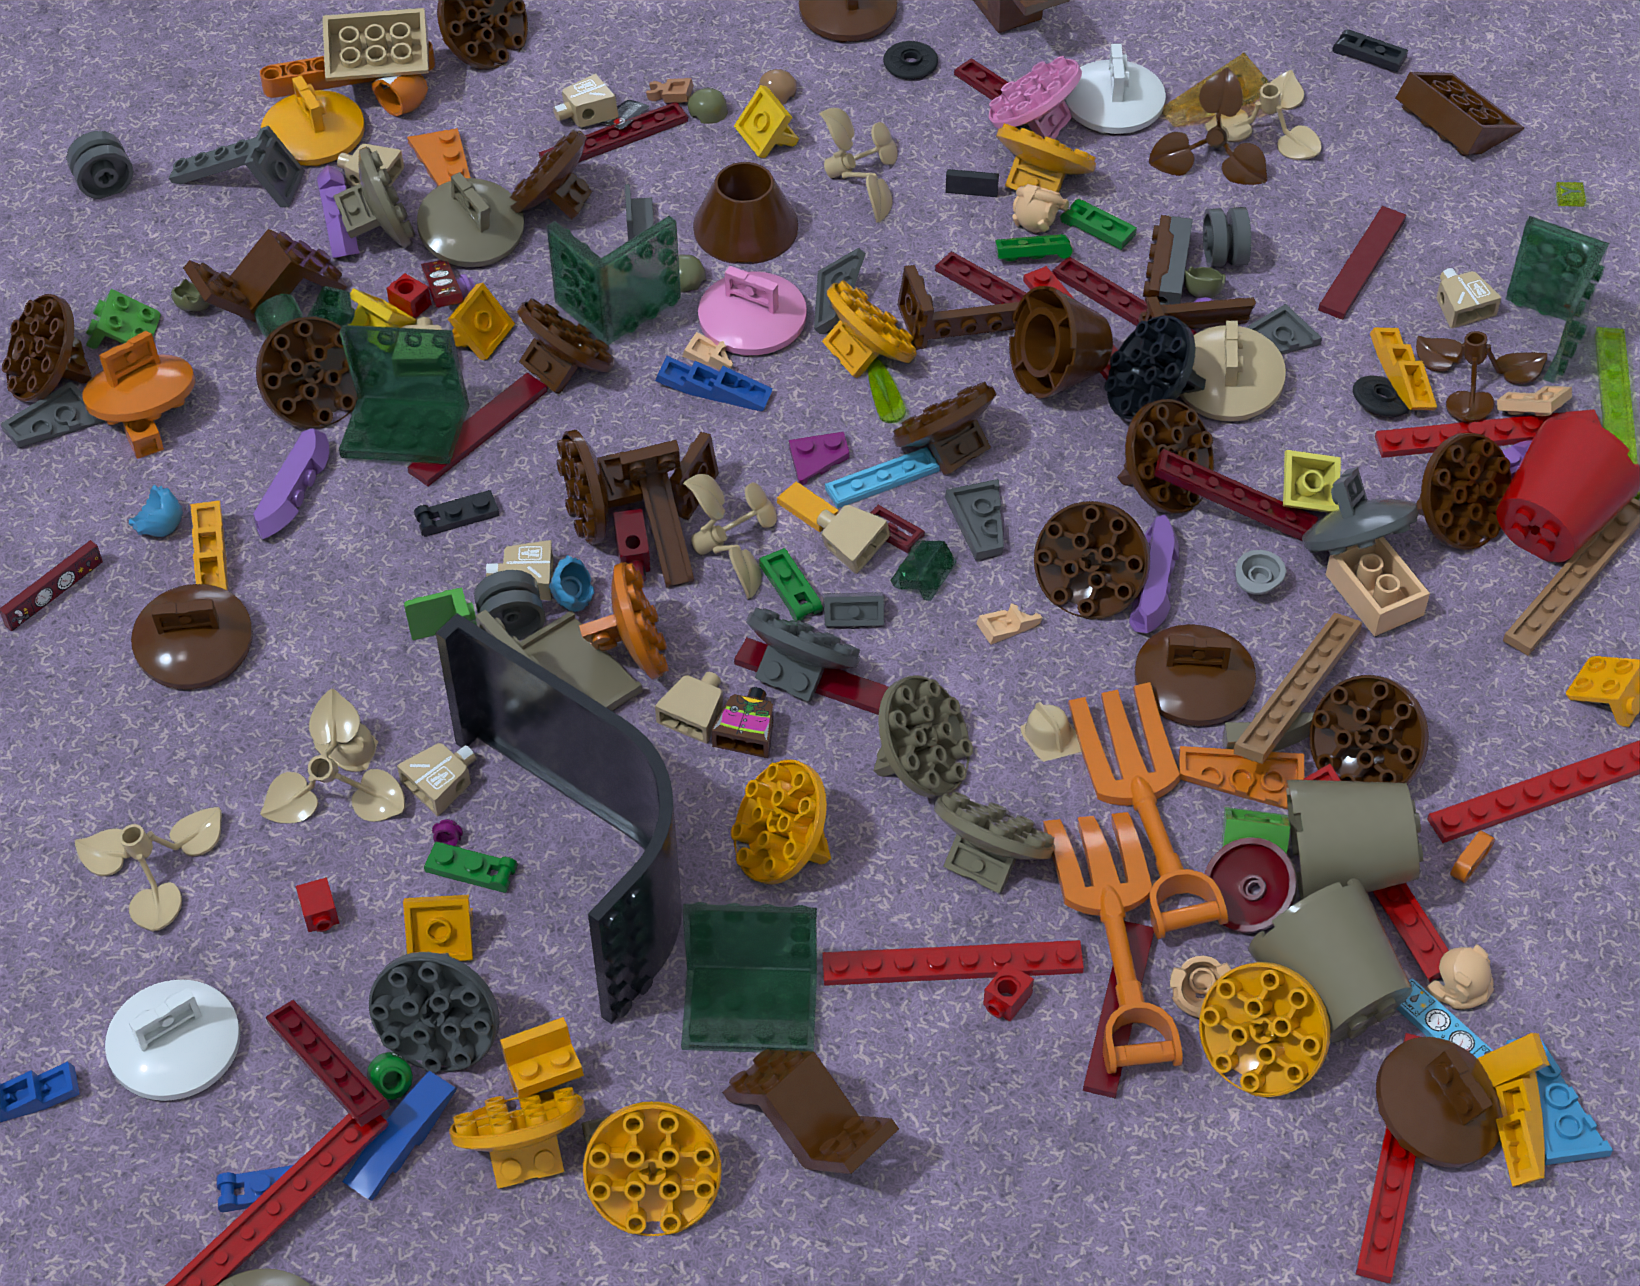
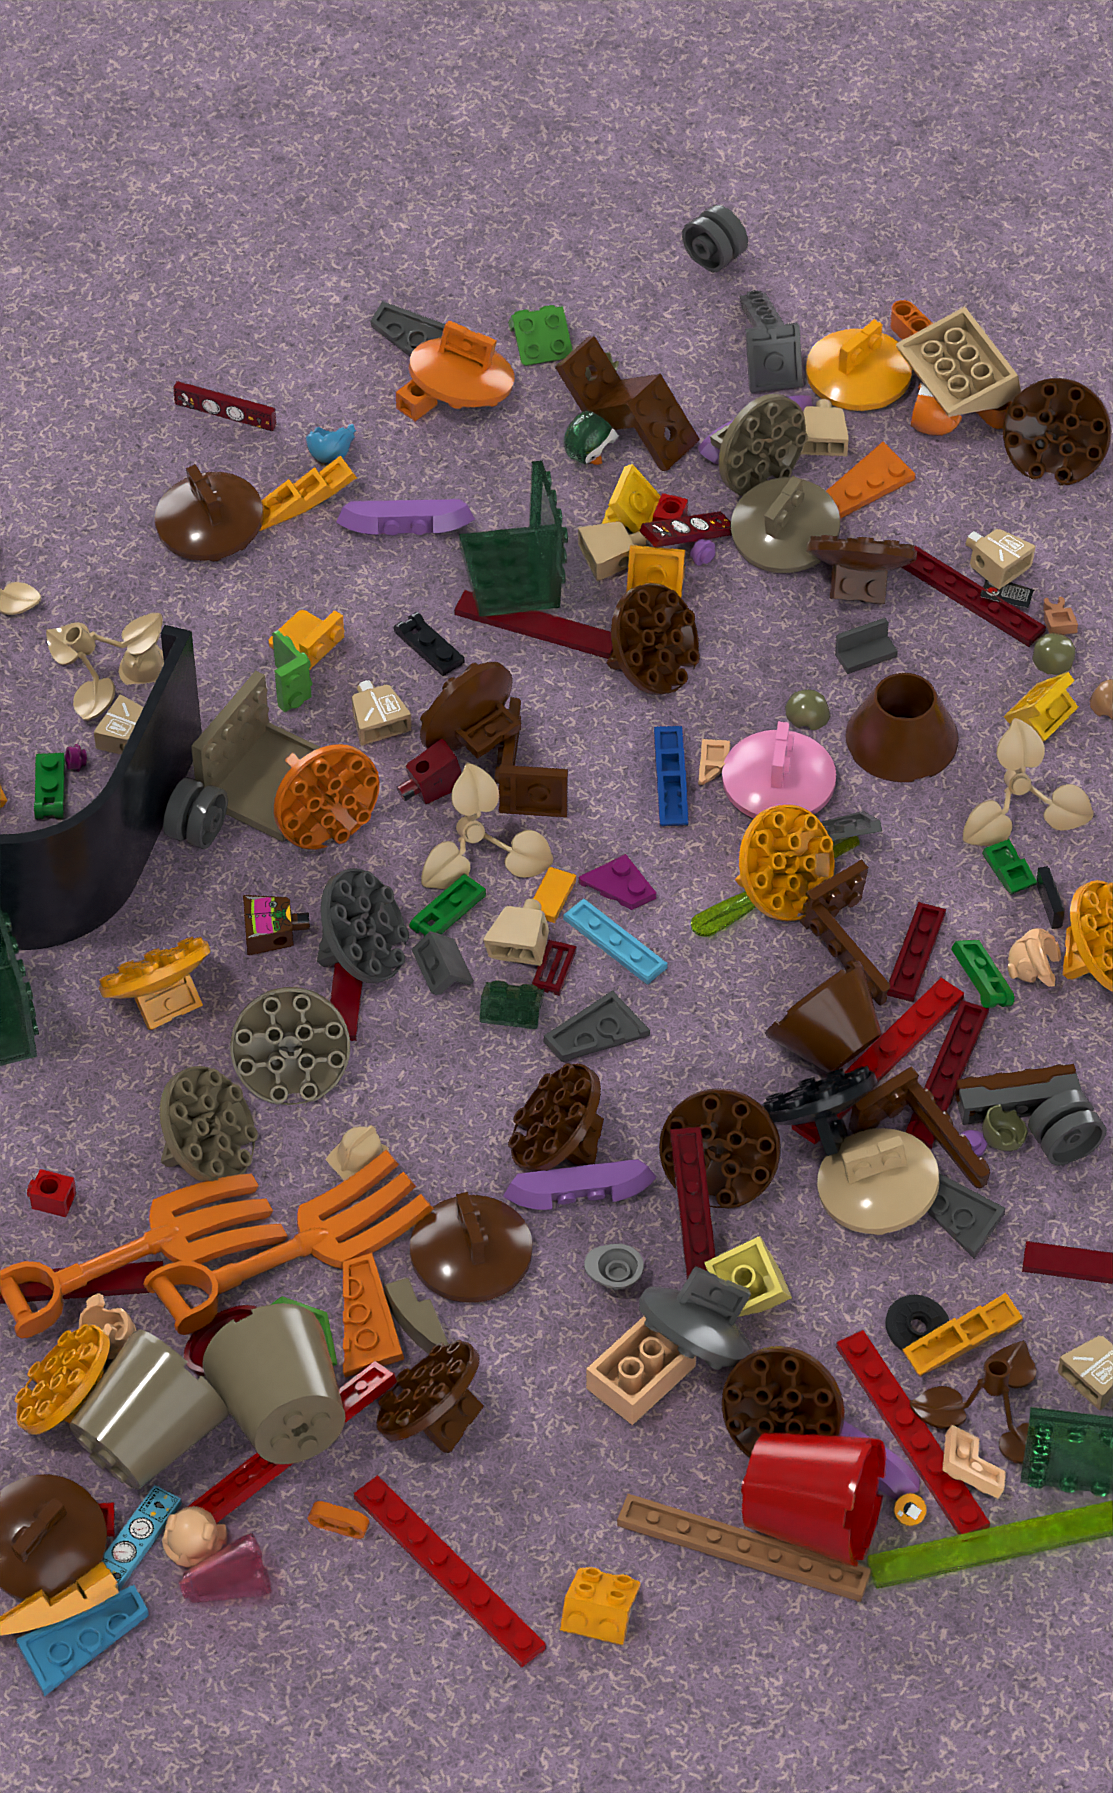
camera: 70 degrees right, 0 degrees up
(43, 350) = (472, 296): reddish brown bracket -> none
(305, 373) = (504, 470): reddish brown bracket -> none
(334, 306) = (611, 462): clear green bracket -> none
(386, 602) = (312, 634): none -> light orange bracket
(514, 600) = (320, 709): dark grey wheel -> none
(571, 584) = (371, 739): dark azure hair -> none
(621, 288) = (733, 656): bracket -> none
(651, 468) = (493, 752): reddish brown bracket -> none
(692, 706) = (276, 875): tan torso -> none
(931, 200) = (1008, 867): none -> green slope
(950, 428) = (683, 968): reddish brown bracket -> none
(950, 962) = (75, 1150): red plate -> none
(1005, 624) = (473, 1085): light nougat slope -> none
(1099, 223) = (1049, 1022): green plate -> none
(1297, 688) = (472, 1324): medium nougat plate -> none
(1519, 953) = (228, 1574): none -> clear pink cone

